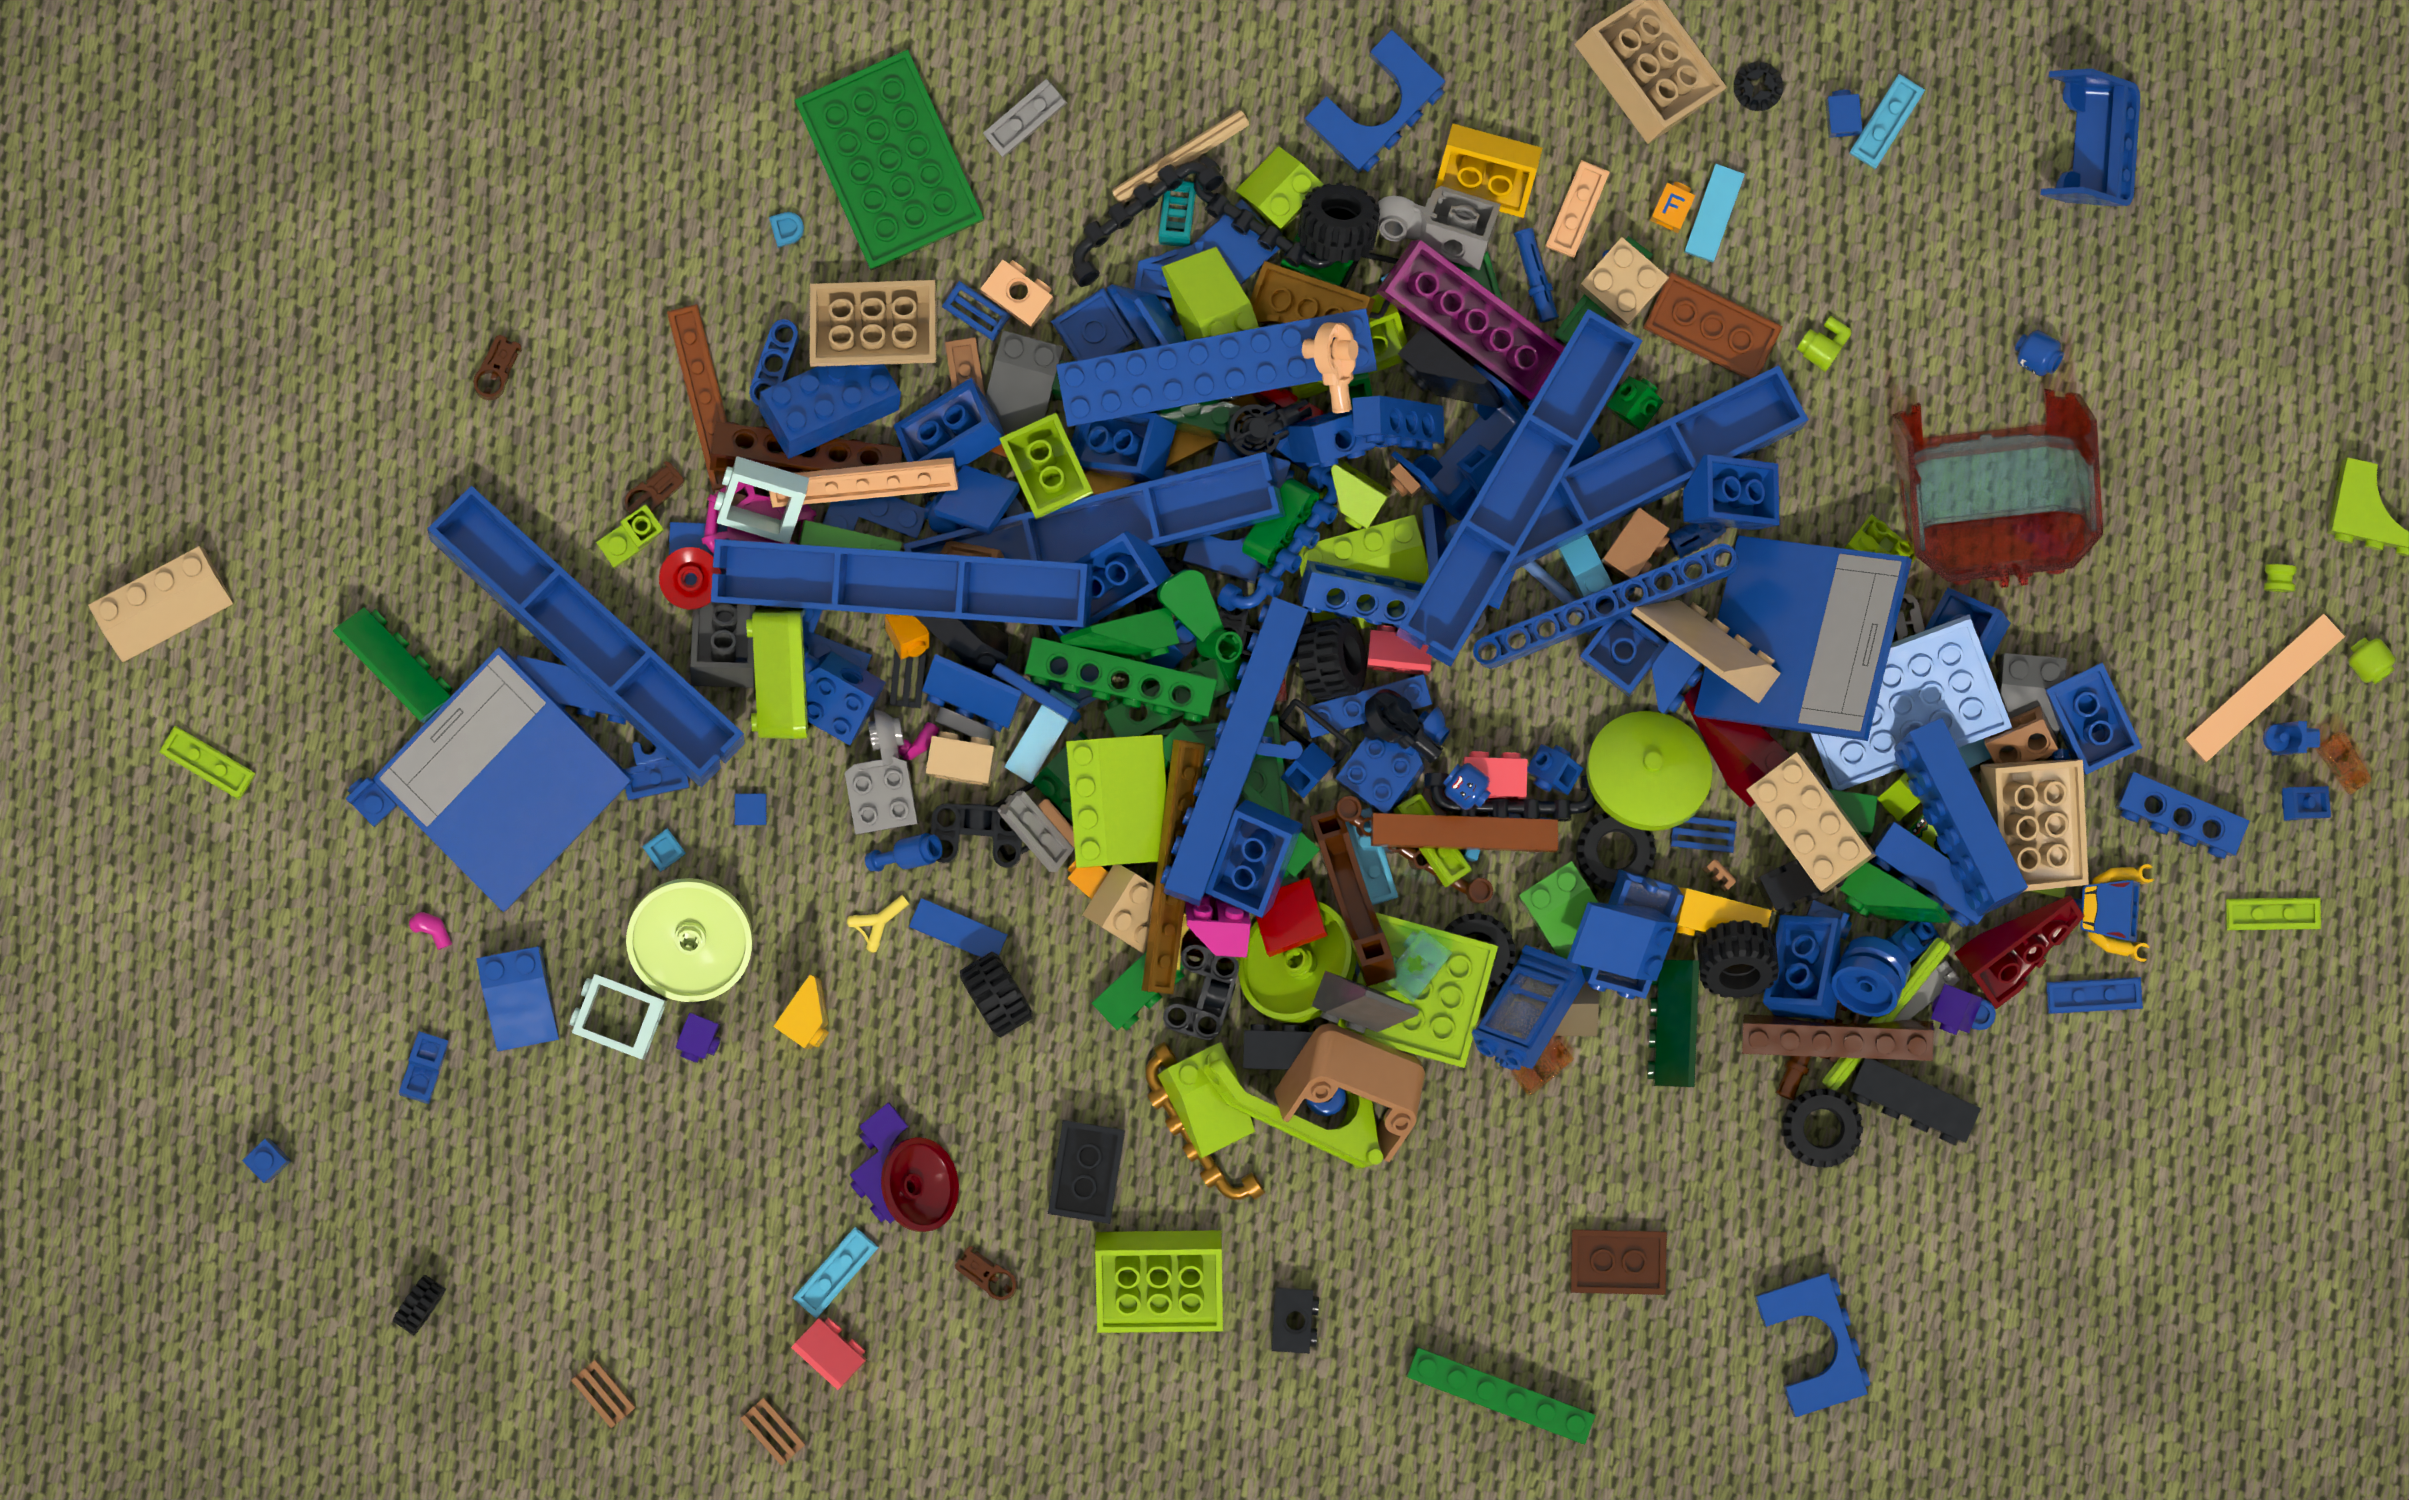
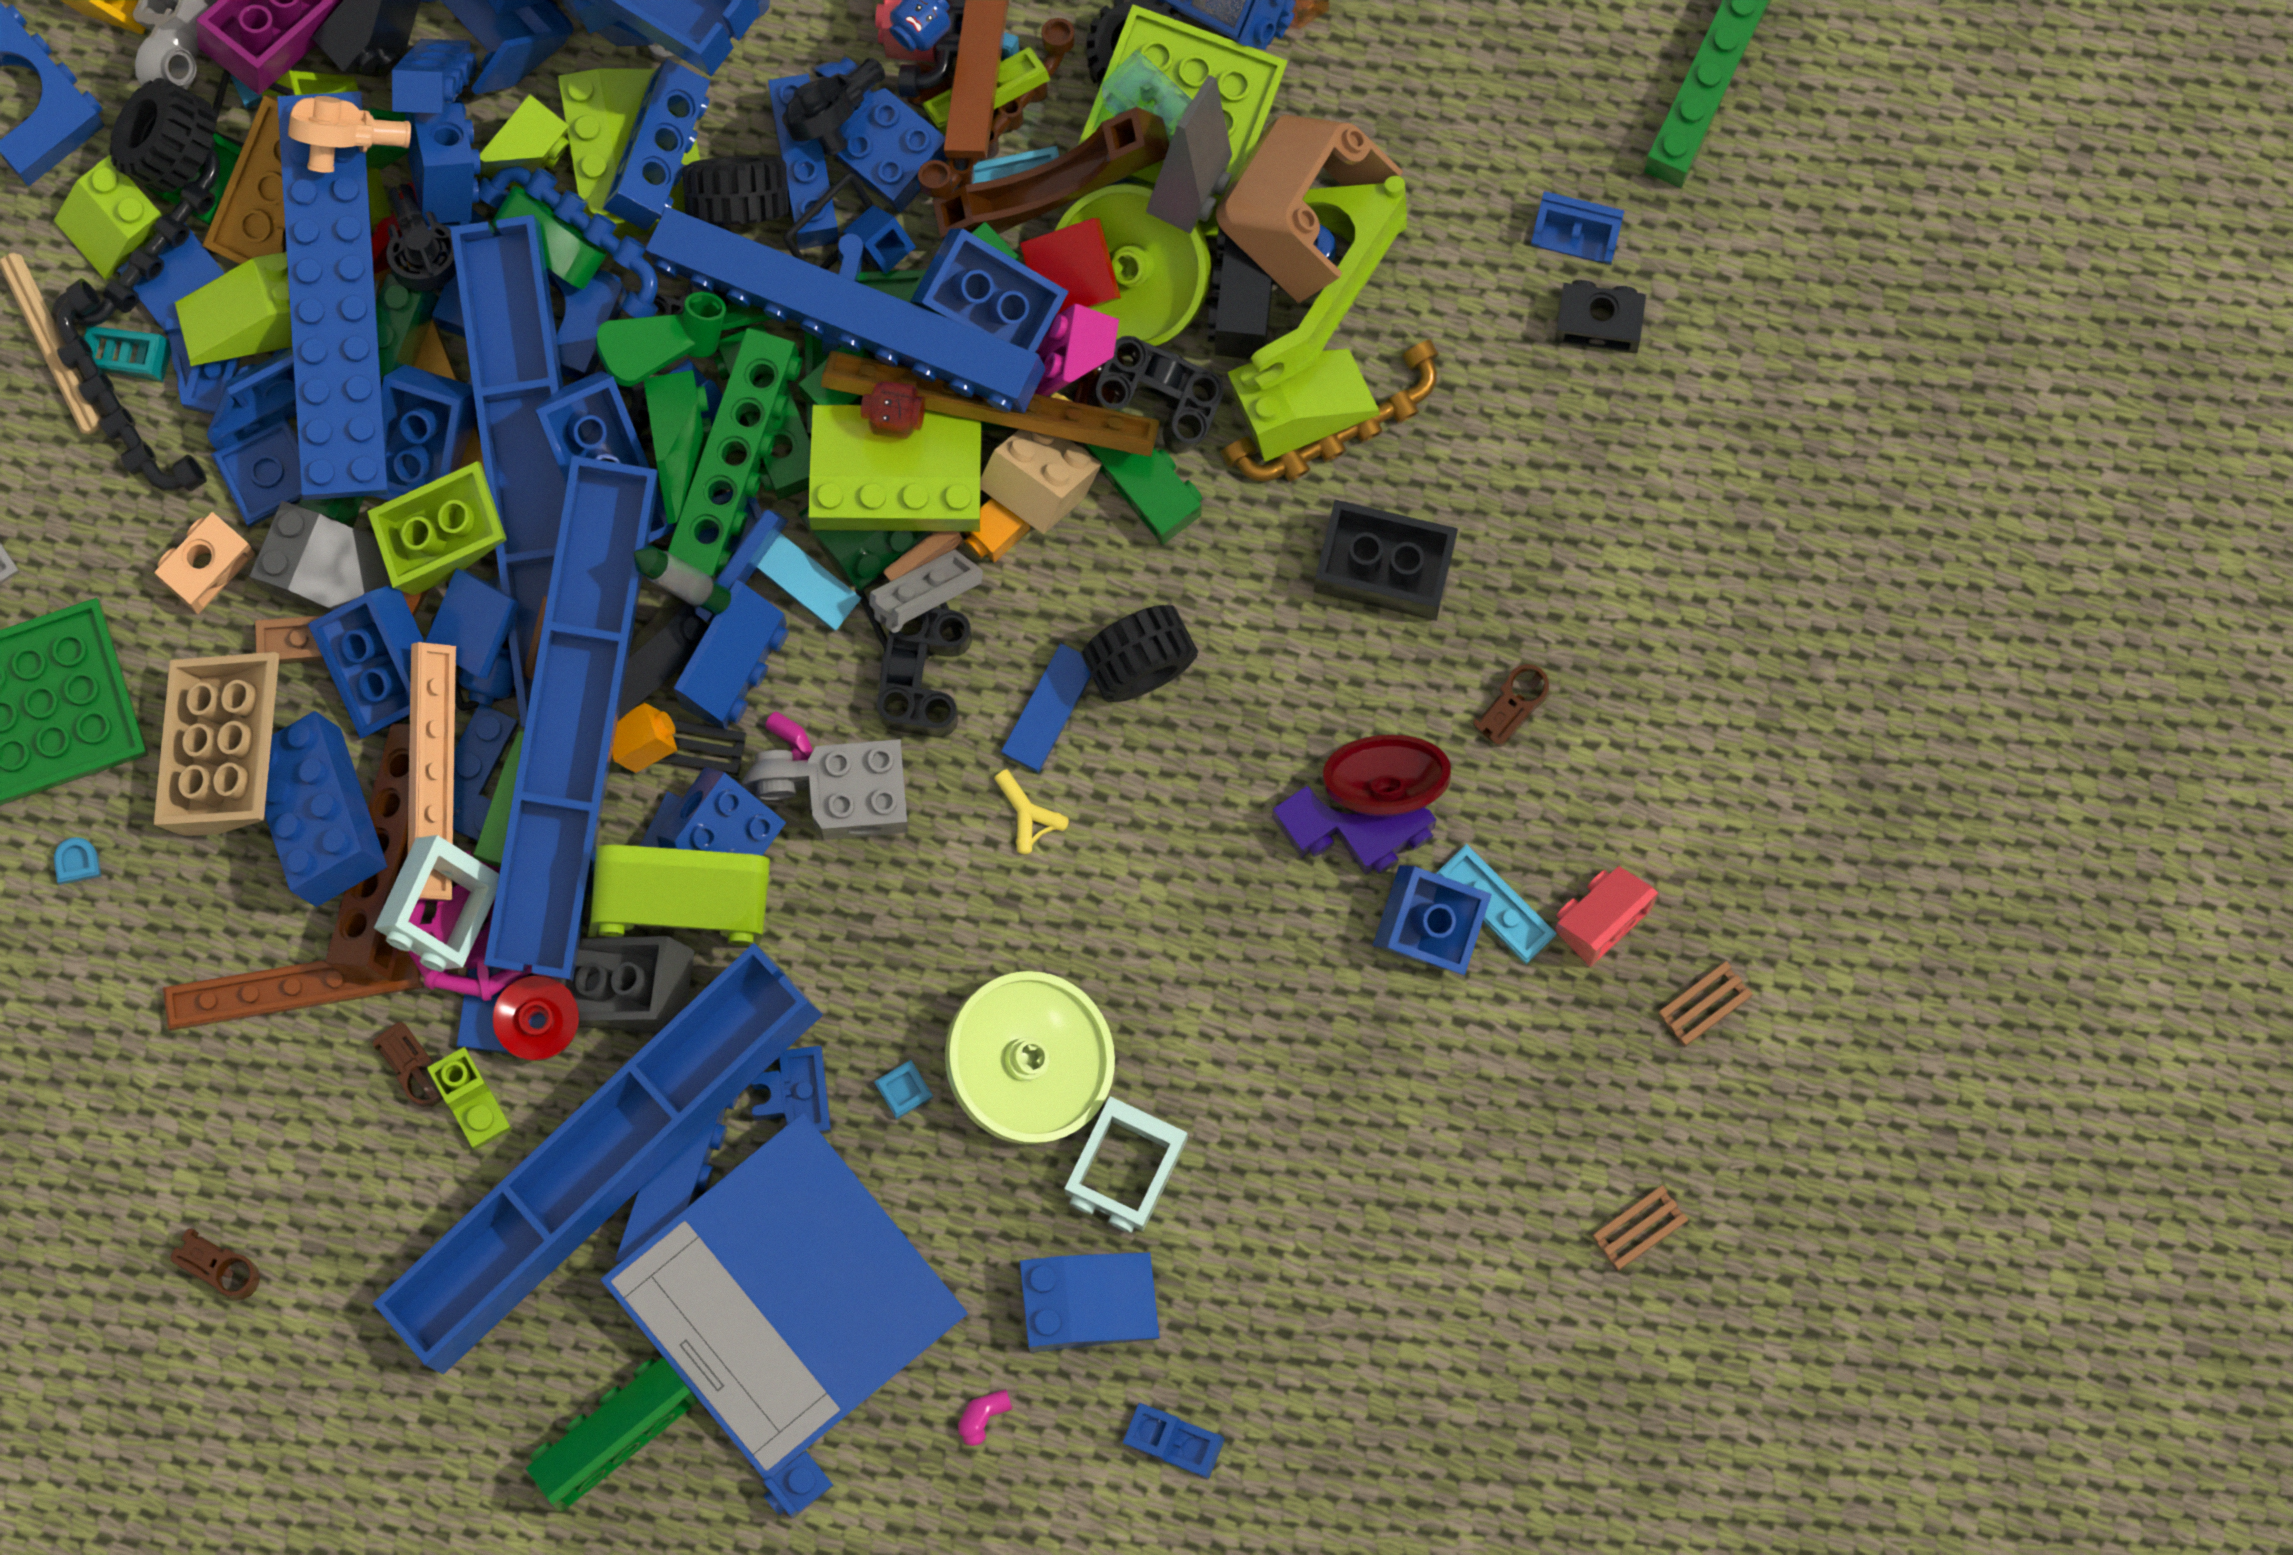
camera: 85 degrees left, 10 degrees down
(419, 1304) = (1502, 1465): black tyre -> none
(698, 1038) = (1164, 1059): dark purple brick -> none
(750, 809) = (859, 969): blue tile -> none
(774, 348) = (242, 876): blue beam -> none
(806, 1015) = (1145, 900): yellow slope -> none
(815, 1225) = (1431, 919): none -> blue slope
(907, 853) = (939, 754): blue piece -> none
(961, 760) = (820, 676): tan brick -> none
(963, 724) = (775, 676): light grey beam -> none
(998, 326) = (210, 609): blue tile -> none
(1008, 653) = (682, 579): none -> piece
(1154, 796) = (893, 410): none -> clear red head
(1159, 1281) = (1537, 482): lime slope -> none
(1362, 1298) = (1577, 228): none -> blue hinge
(1394, 654) = (737, 111): coral slope -> none
(1404, 482) = (512, 85): medium nougat plate -> none
(1434, 530) = (608, 57): blue tile -> none

